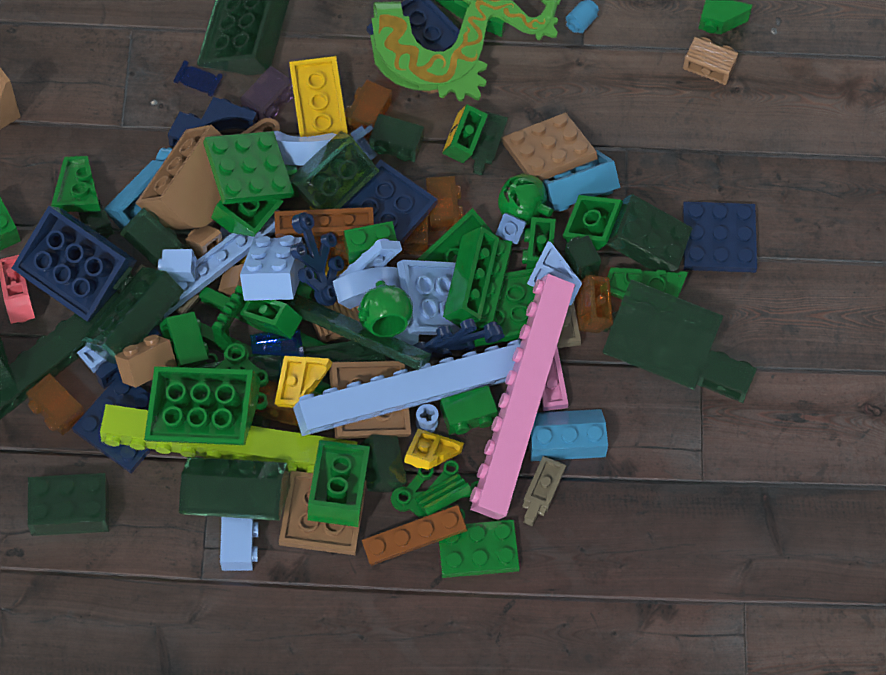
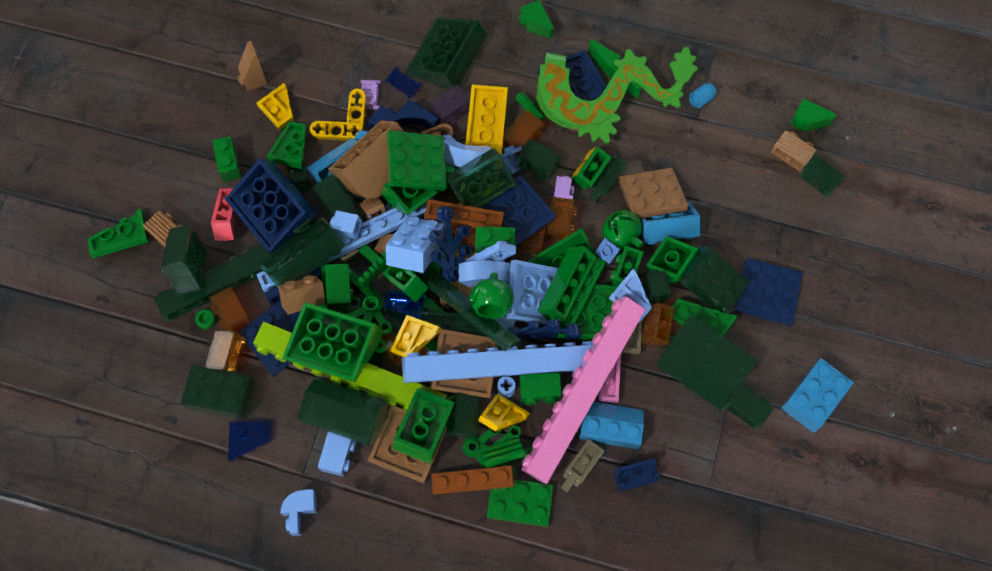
camera: 15 degrees right, 5 degrees up
(25, 423) = (205, 319): none -> green tile
(43, 143) = (277, 107): none -> yellow wing
(64, 451) = (225, 351): none -> clear orange brick
(119, 550) = (247, 436): none -> clear blue wing
(146, 142) = (351, 123): none -> yellow beam
(158, 102) = (371, 91): none -> lavender piece
(207, 612) = (296, 504): none -> light blue brick
(366, 73) = (527, 105): none -> green axle
(437, 164) = (564, 188): none -> lavender brick
(610, 485) = (636, 475): none -> dark blue hinge
(751, 84) = (821, 176): none -> clear green brick
(805, 344) = (817, 395): none -> dark azure brick

